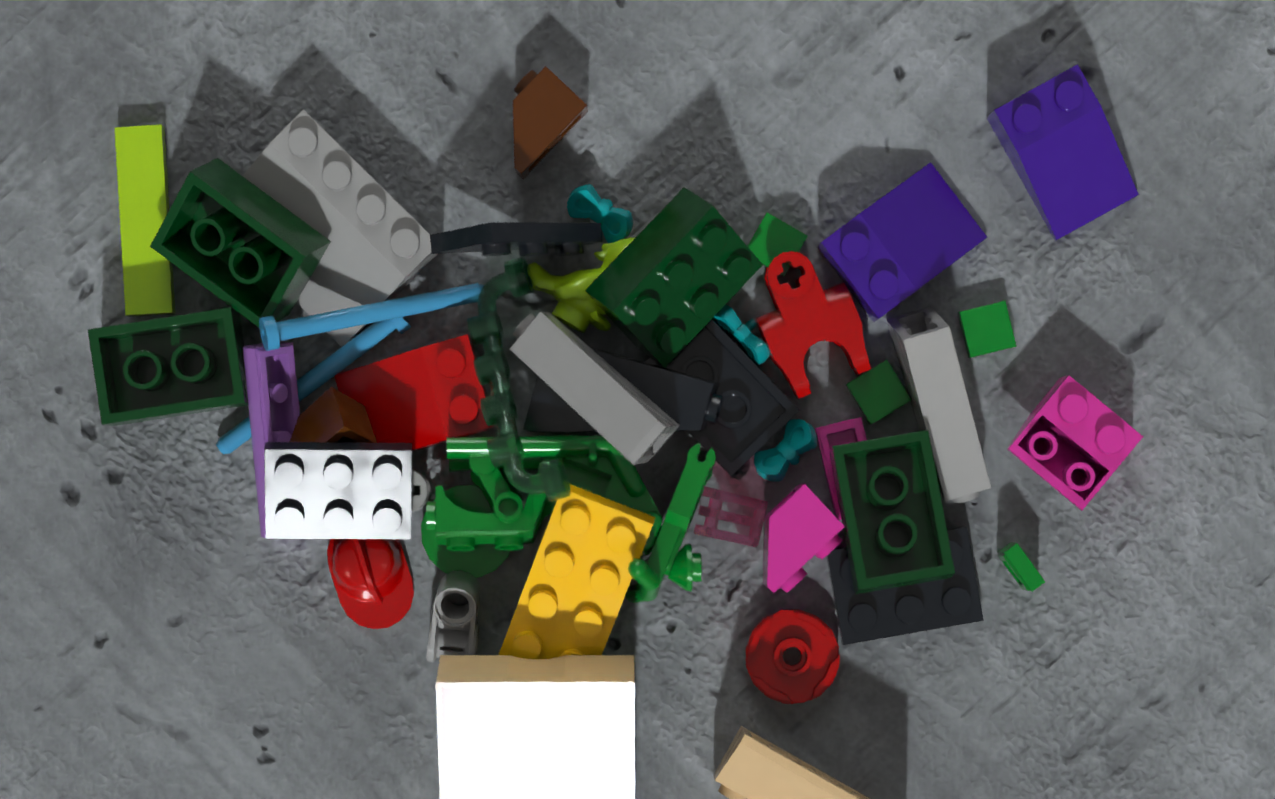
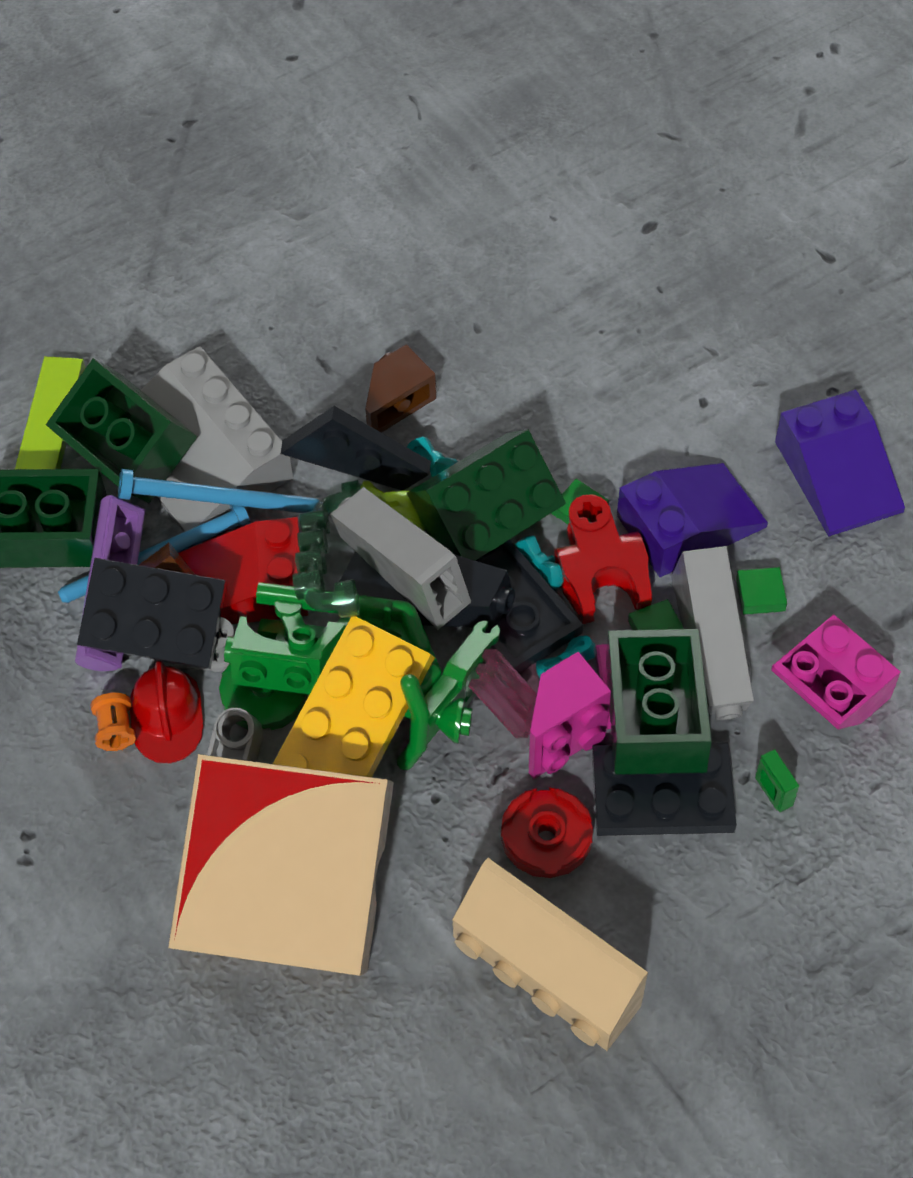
camera: 10 degrees right, 30 degrees down
(322, 584) = (106, 728): none -> orange bush

